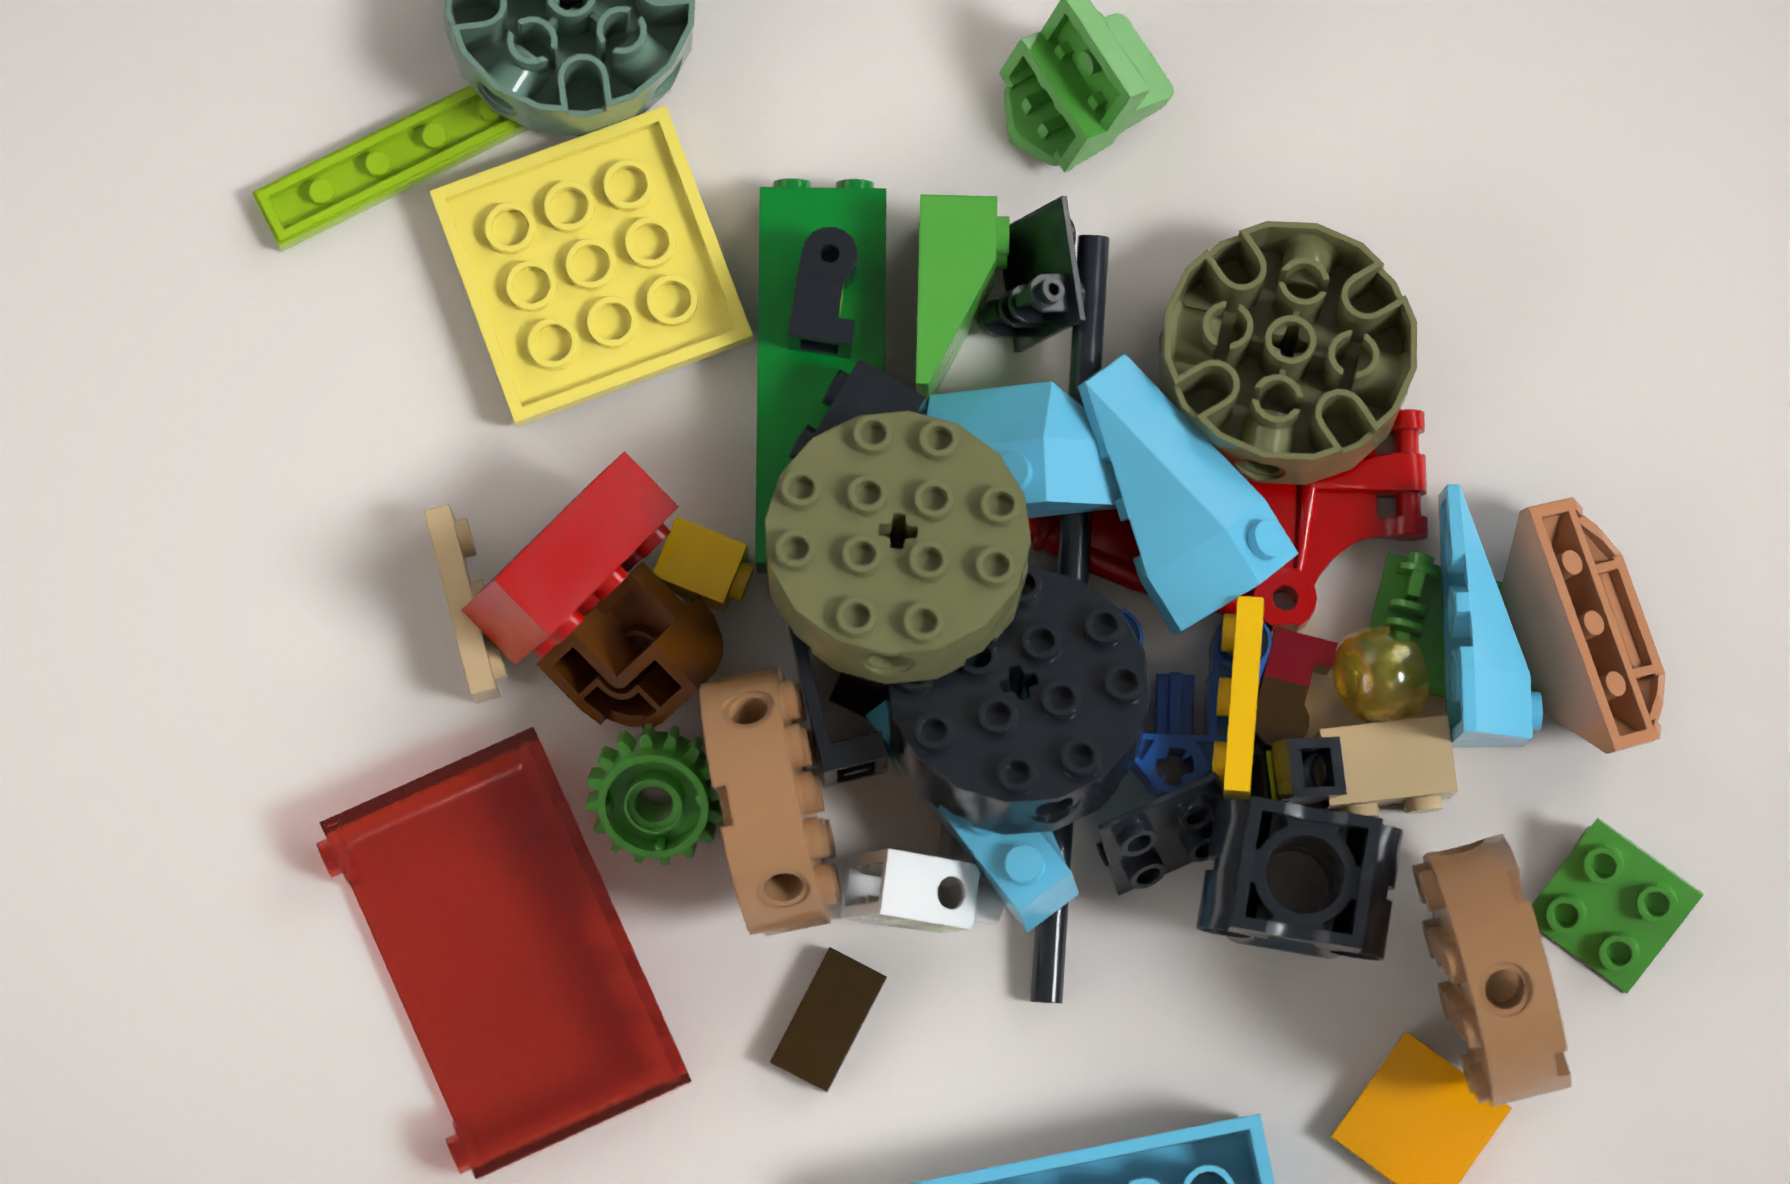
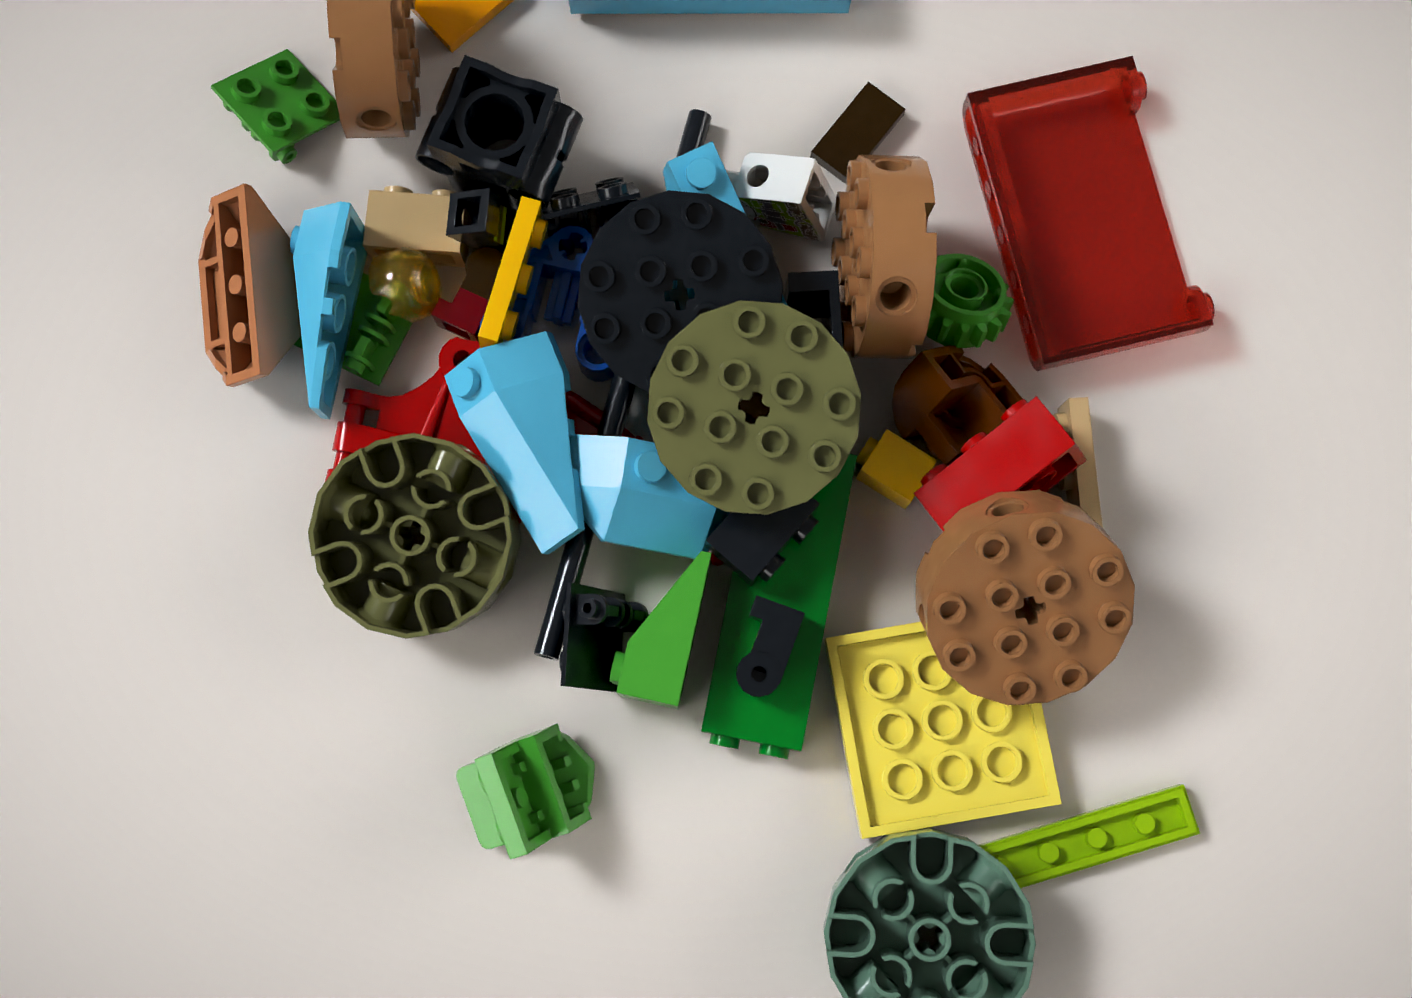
camera: 170 degrees left, 0 degrees up
(524, 398) = (1024, 598): none -> medium nougat brick

